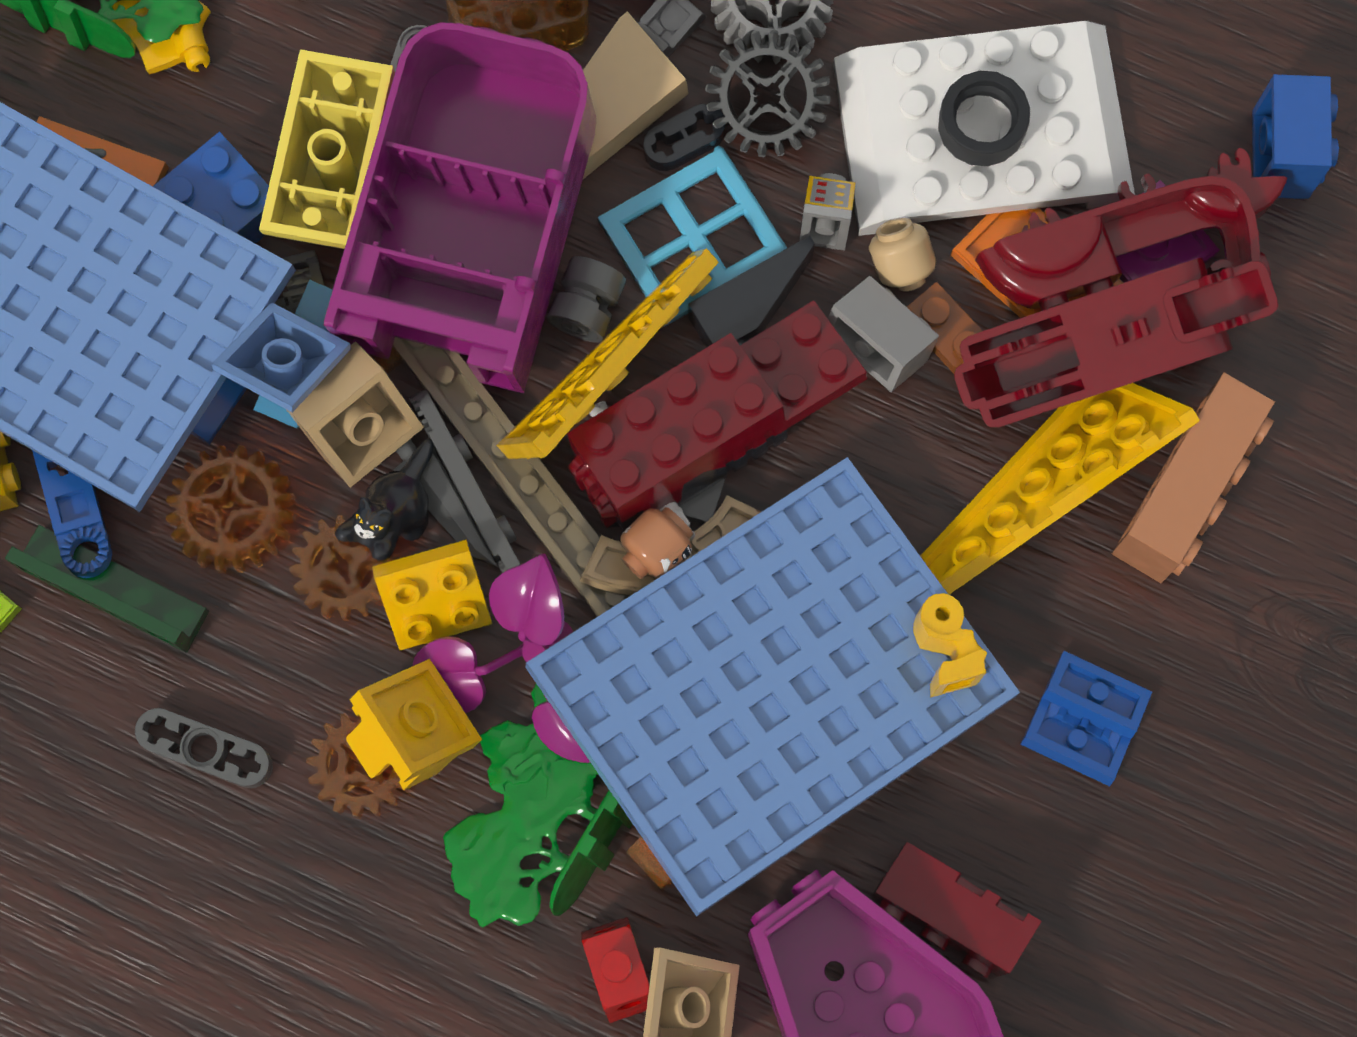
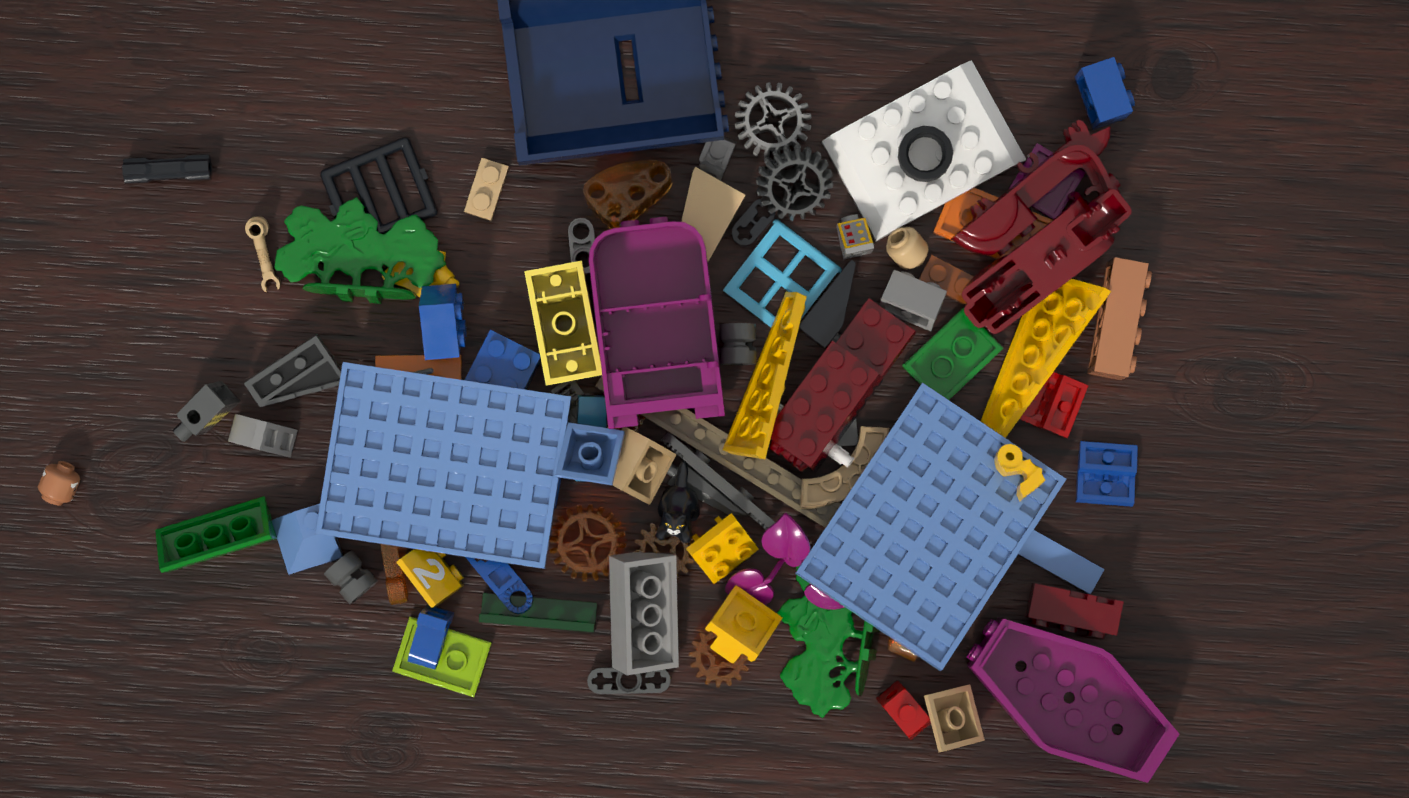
camera: 20 degrees left, 10 degrees up
(150, 91) = (442, 321): none -> blue brick
(268, 645) = (643, 612): none -> light grey slope
(656, 543) = (837, 475): nougat head -> none
(913, 444) = (953, 356): none -> green tile
(959, 825) = (1061, 562): none -> medium blue tile
(1043, 578) = (1056, 405): none -> red slope

